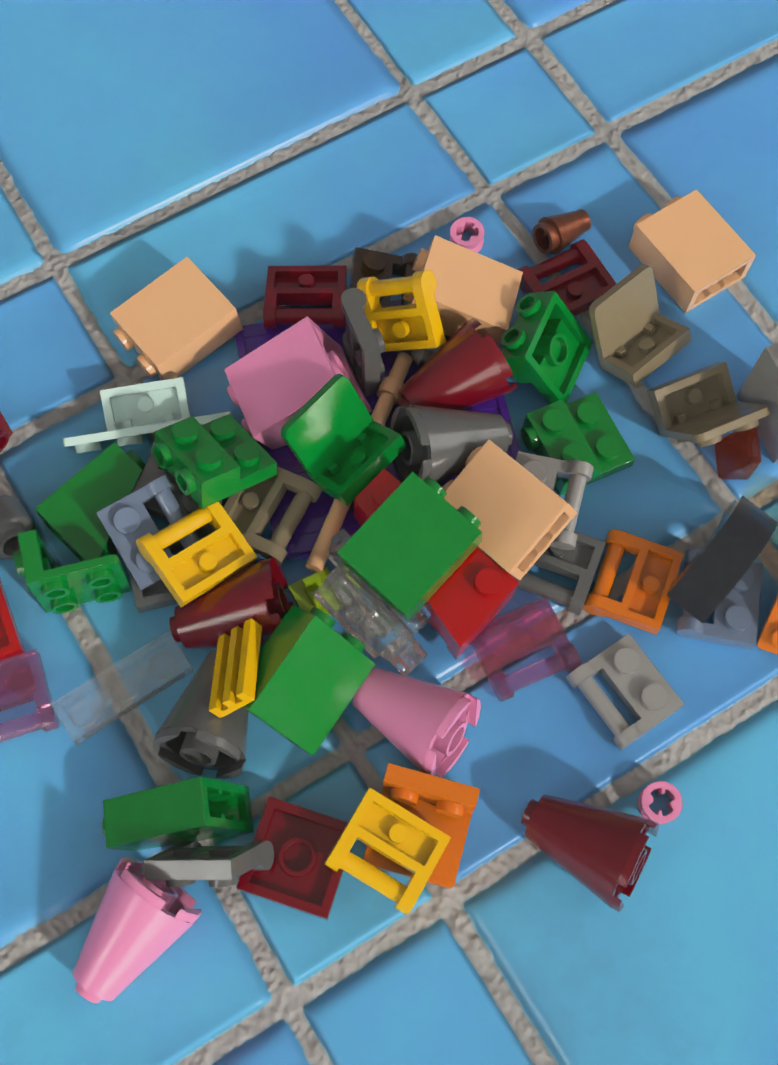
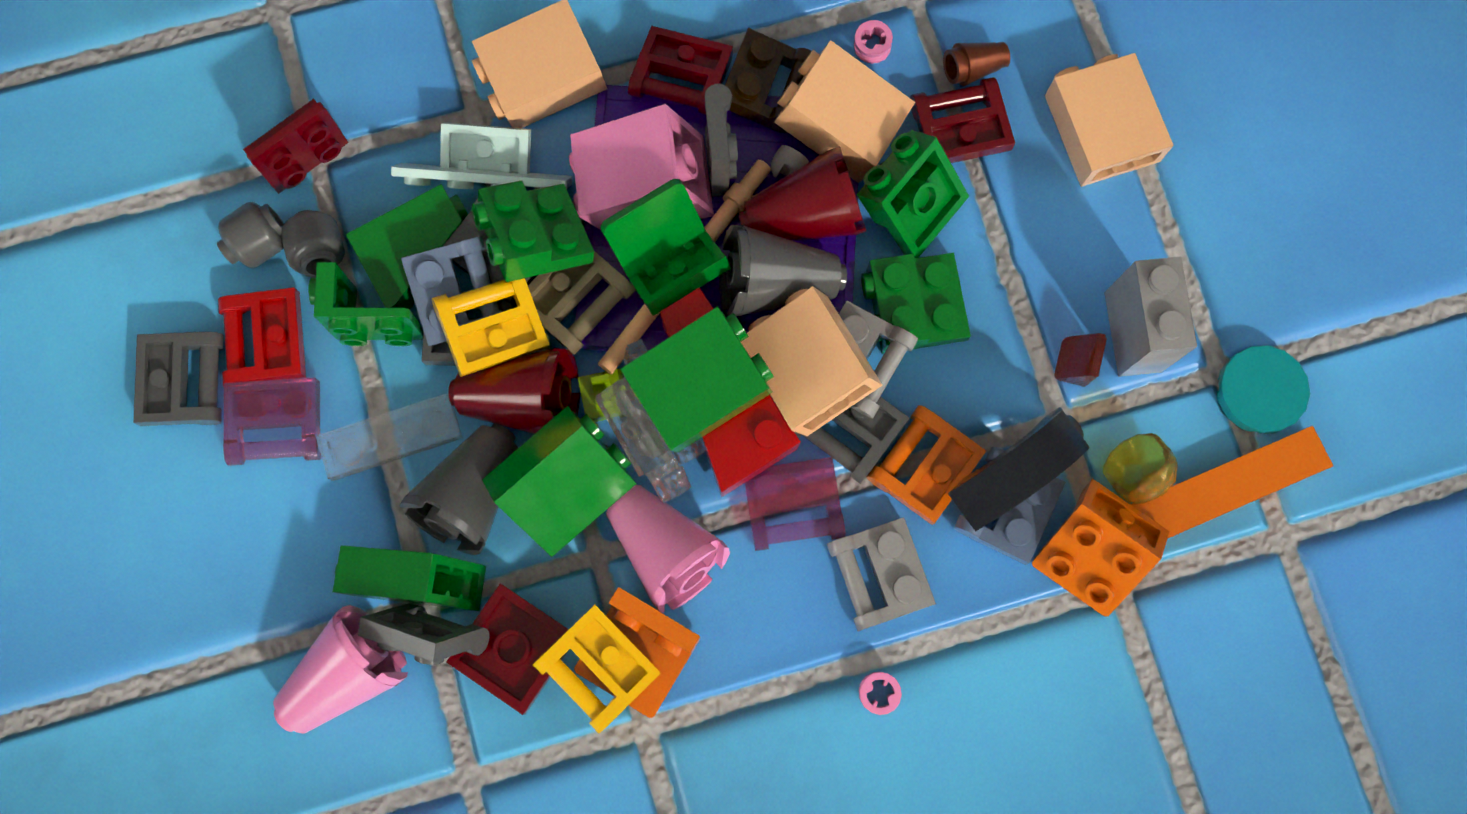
camera: 15 degrees right, 10 degrees up
(235, 669) = (495, 455): yellow tile -> none
(405, 325) = (766, 133): yellow plate -> none
(591, 843) = (796, 716): dark red cone -> none
(631, 332) = (1013, 195): dark tan bracket -> none
(702, 407) = (1059, 301): dark tan bracket -> none

